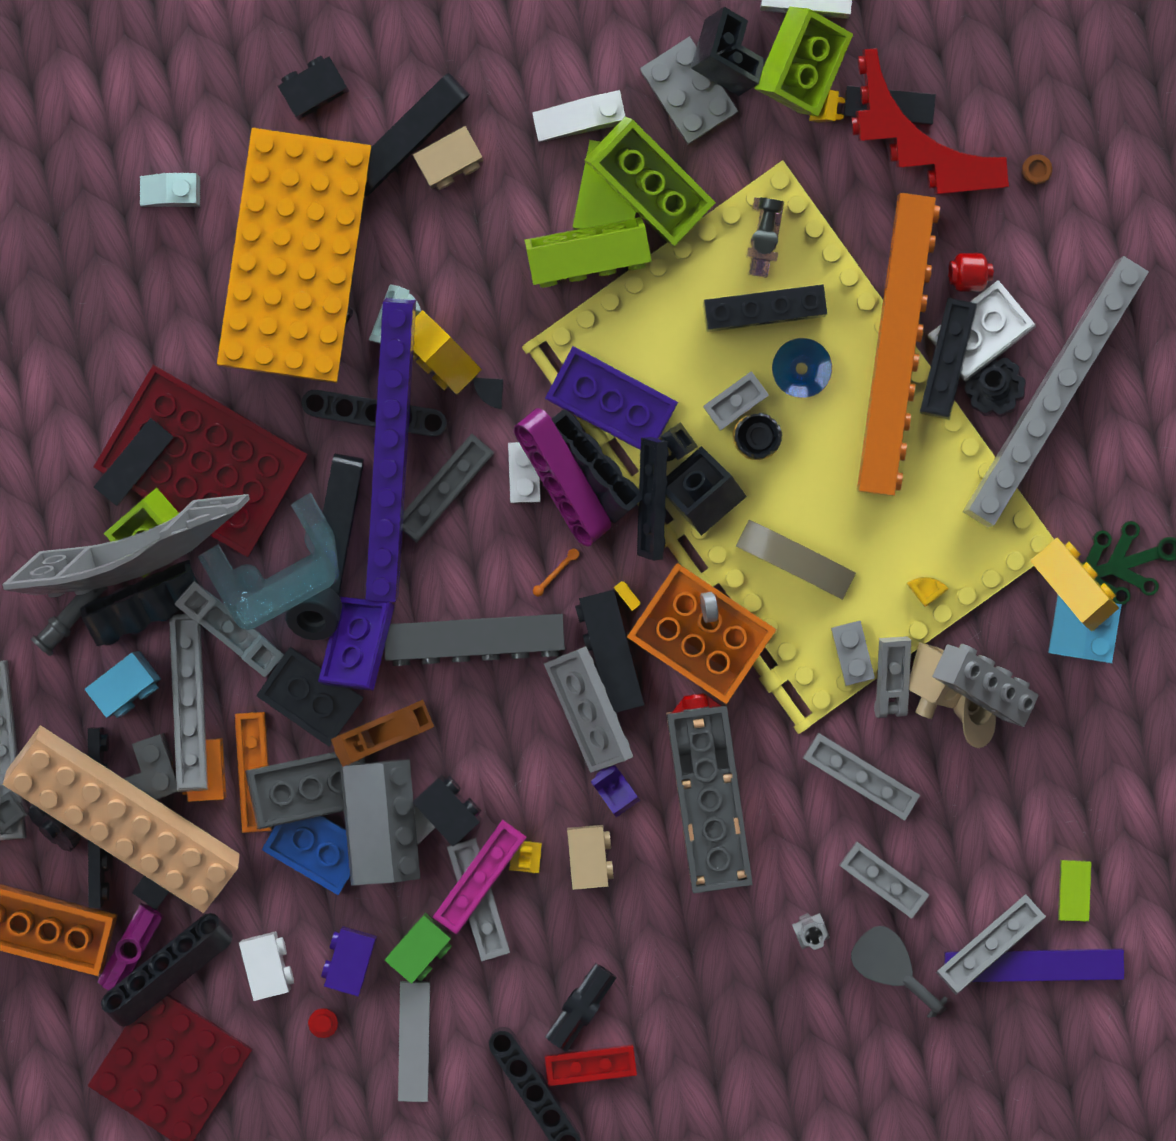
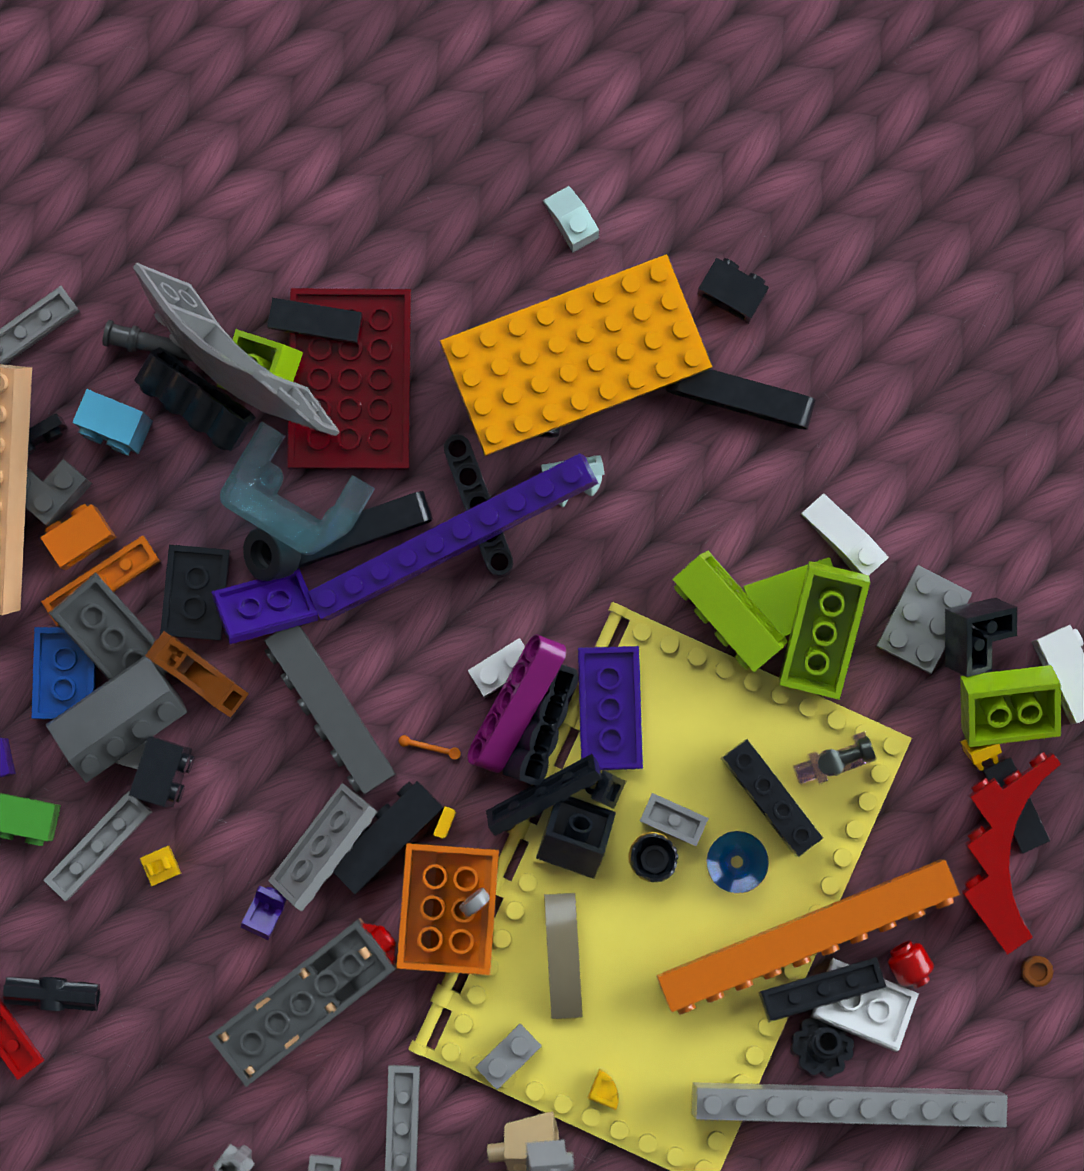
camera: 60 degrees right, 5 degrees down
(188, 704) = (128, 488): light grey tile -> none
(216, 618) = (219, 461): light grey slope -> none
(442, 355) = (563, 535): yellow brick -> none
(445, 487) = (449, 605): dark grey tile -> none
(449, 158) = (740, 443): tan brick -> none
(479, 876) = (117, 835): dark pink tile -> none
(490, 391) = (557, 596): black tile -> none
(588, 856) = (190, 922): tan brick -> none
(893, 676) = (508, 1105): light grey plate -> none

